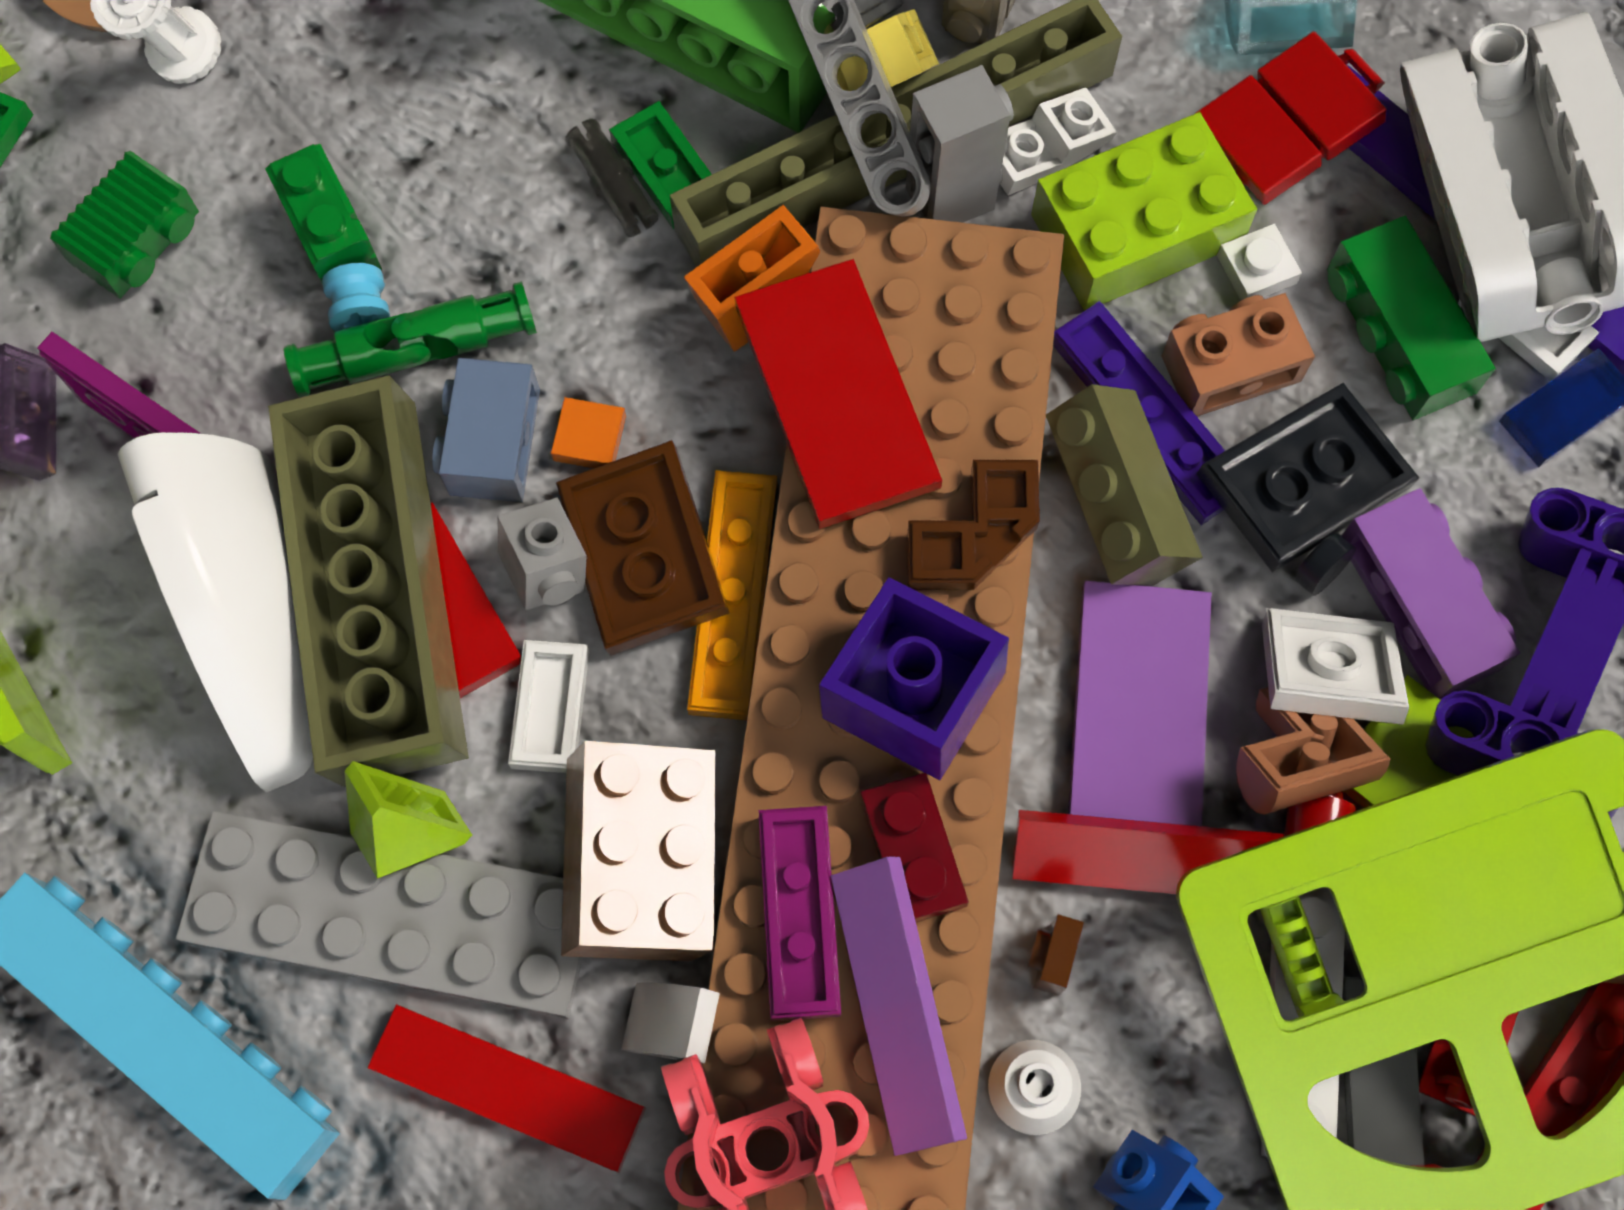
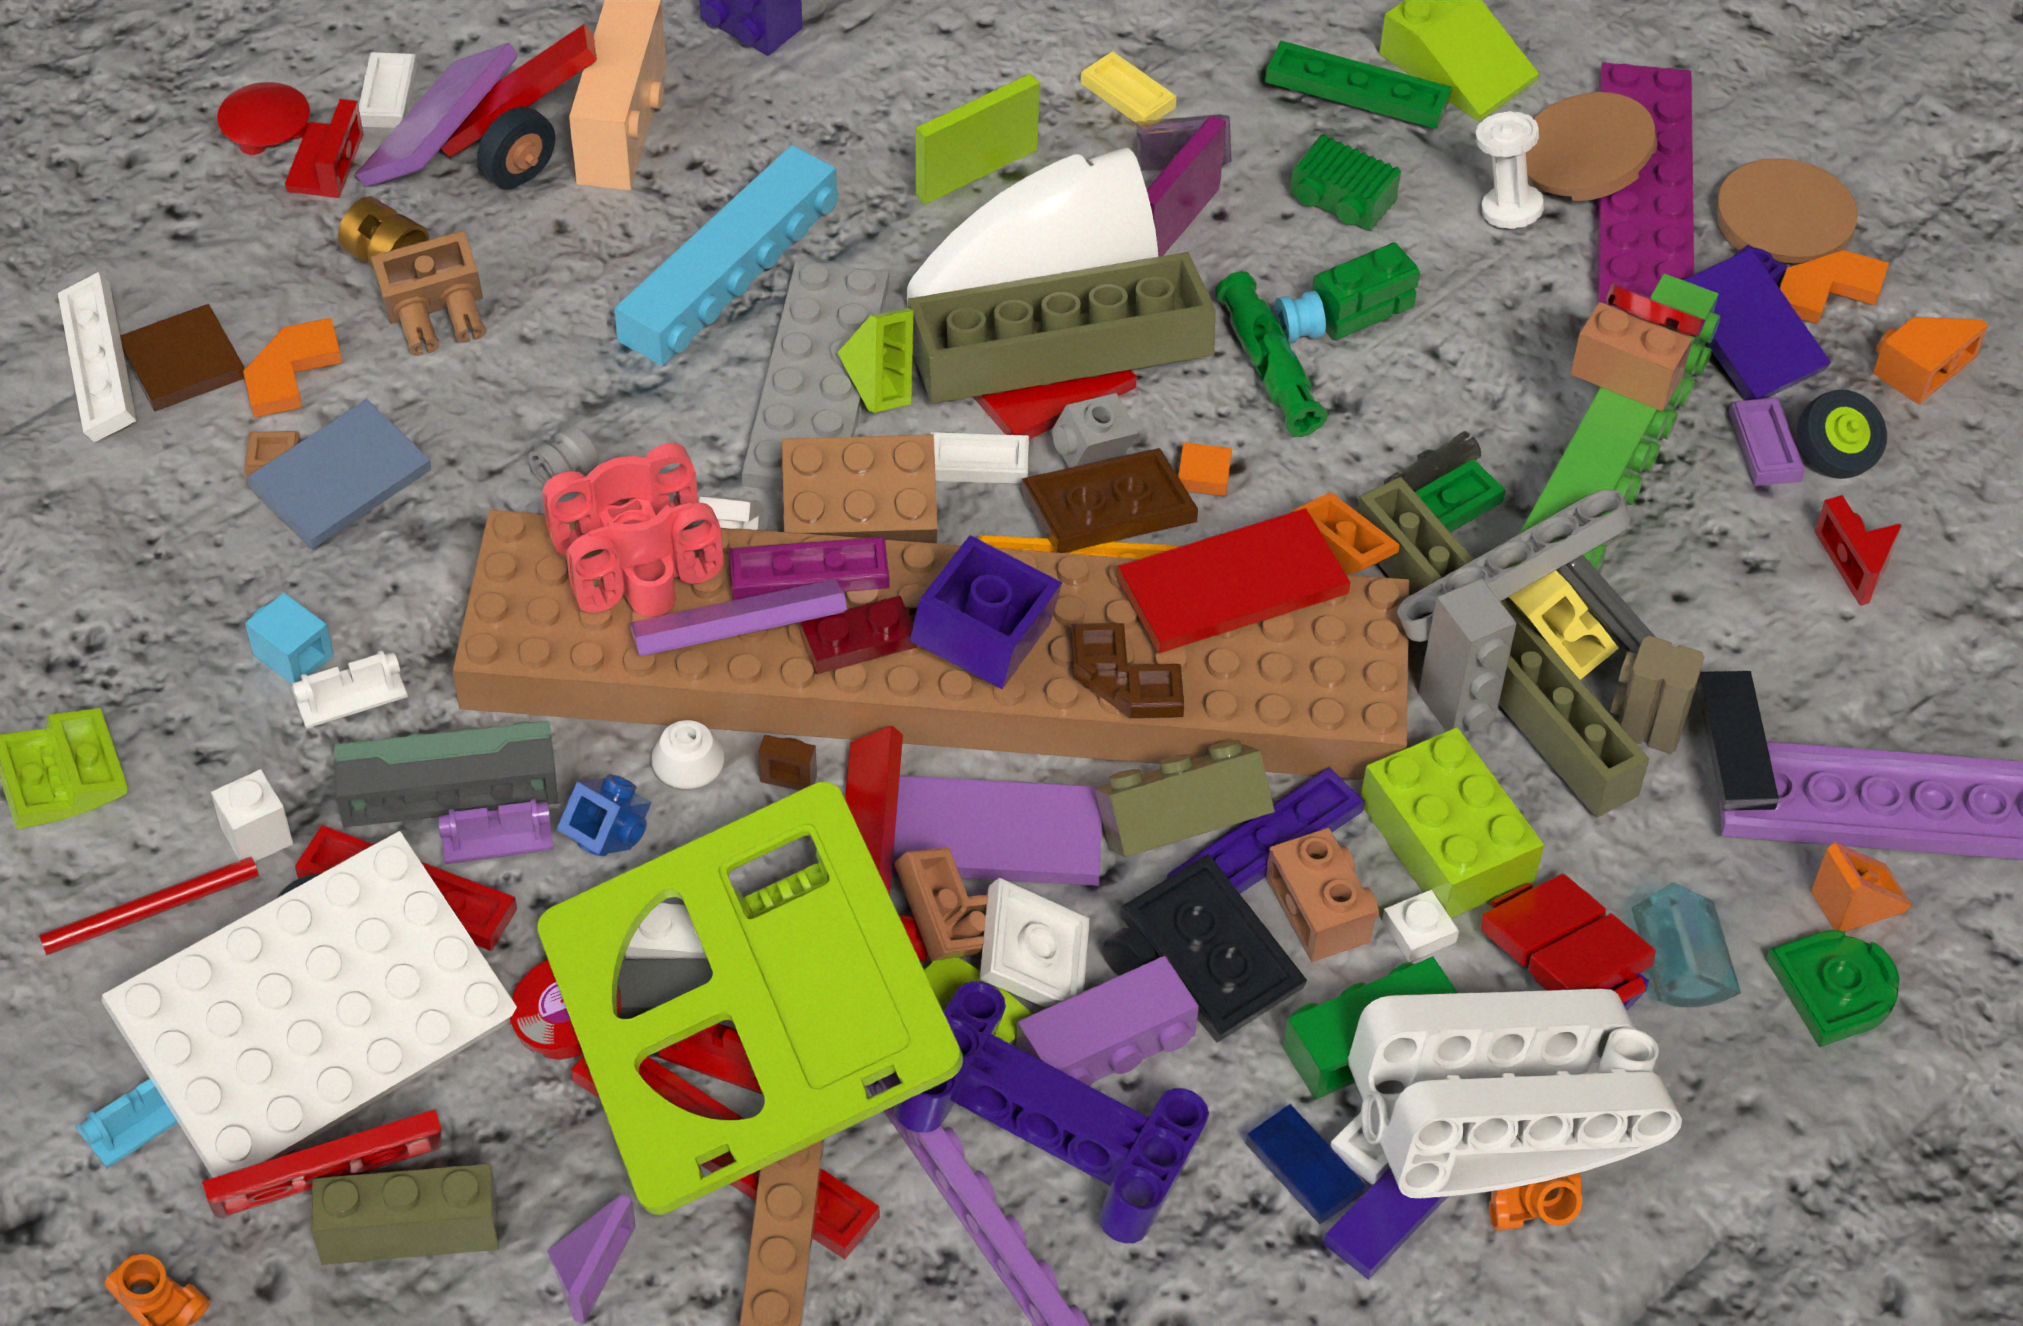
camera: 85 degrees right, 20 degrees down
(487, 429) = (1197, 402): sand blue brick -> none
(507, 1088) = (708, 419): red tile -> none
(1054, 139) = (1527, 776): white slope -> none

